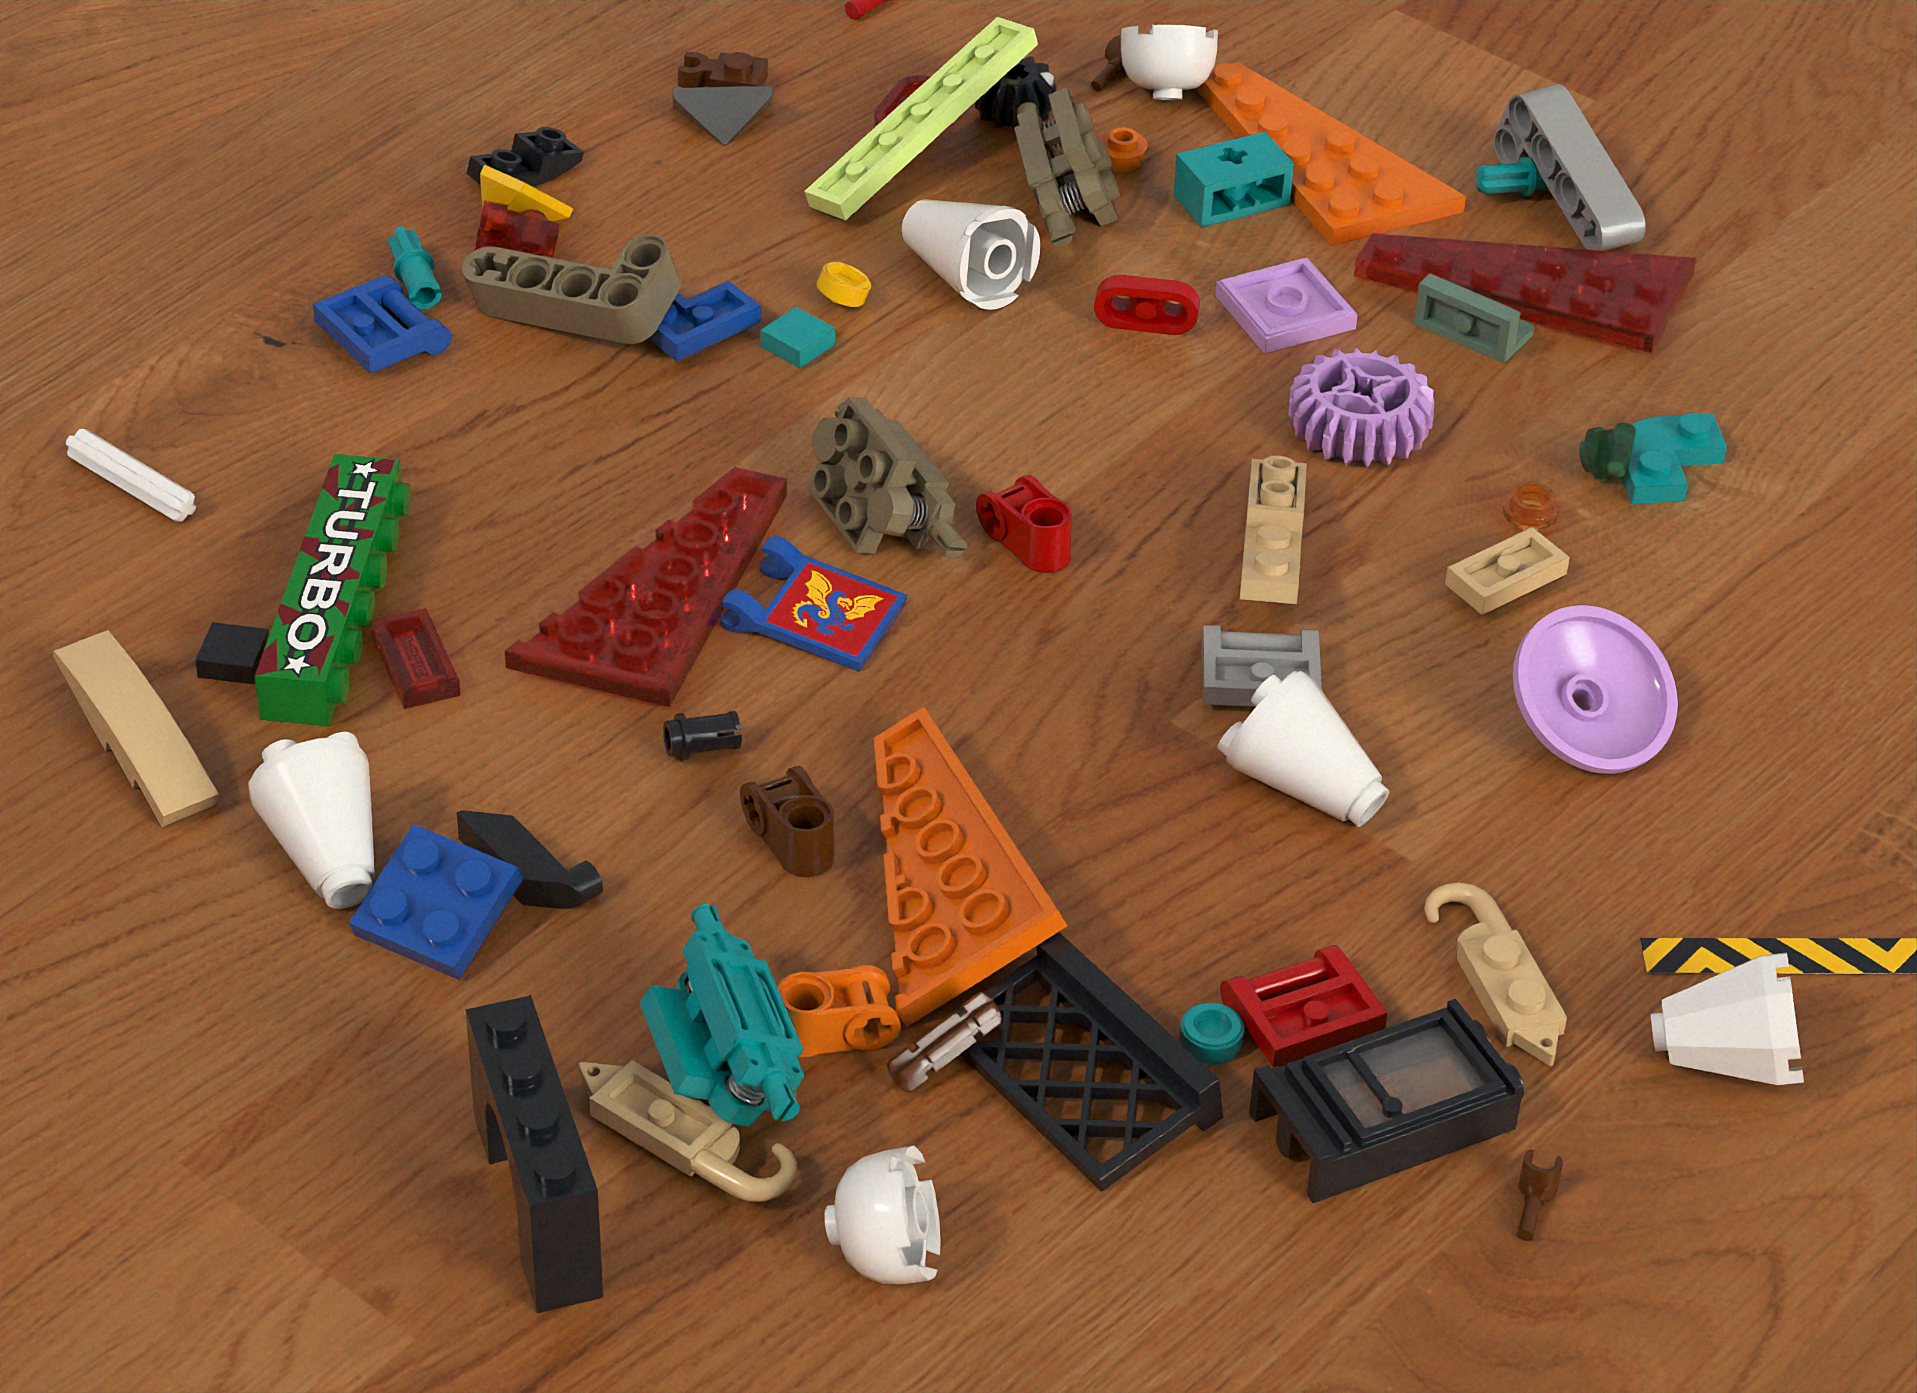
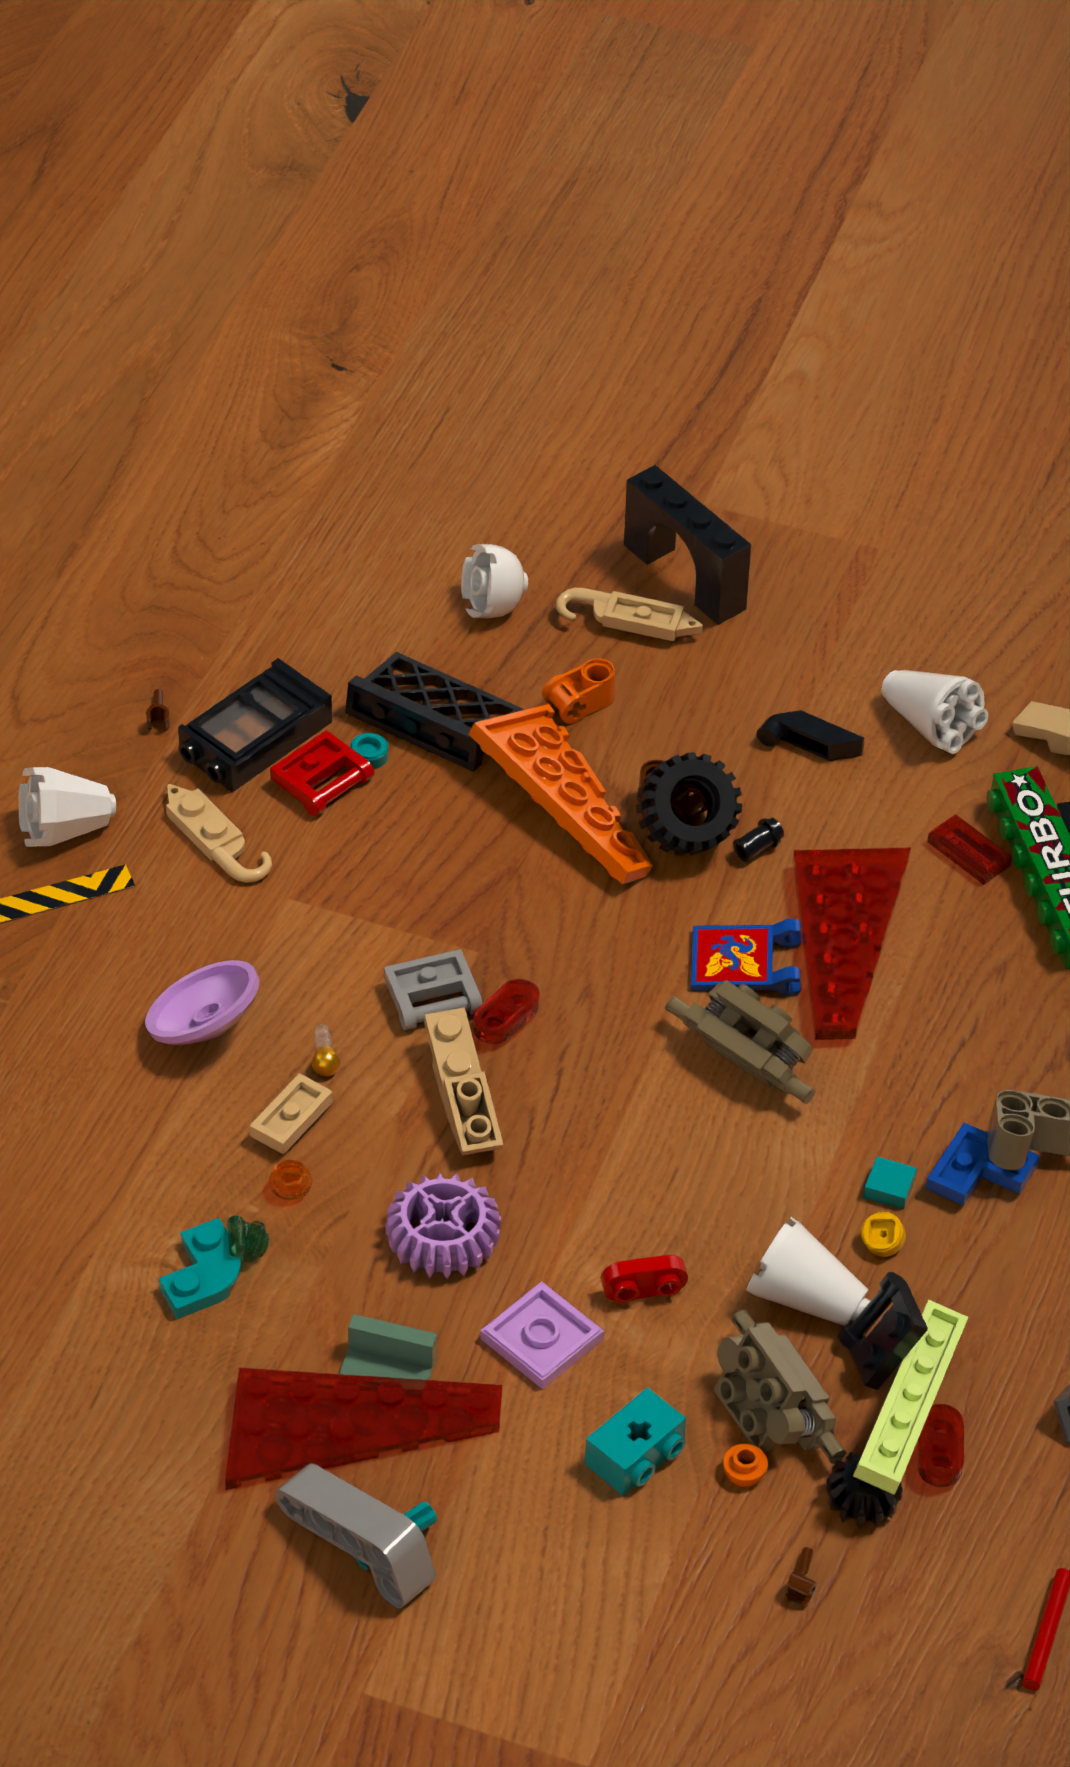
camera: 160 degrees right, 5 degrees up
(436, 901) = (840, 689): blue plate -> none
(726, 1028) = (624, 633): teal piece -> none
(793, 738) = (715, 787): none -> black tyre
(915, 155) = (891, 1338): none -> black plate
(944, 1041) = (513, 690): axle -> none
(1028, 523) = (635, 1050): red piece -> none
(1168, 58) = (752, 1553): white cylinder -> none
(1173, 612) = (500, 1016): none -> clear red plate
(1305, 750) = (380, 911): white cone -> none
(1339, 175) = (577, 1513): orange wing -> none
(1438, 626) = (325, 1060): none -> pearl gold piece

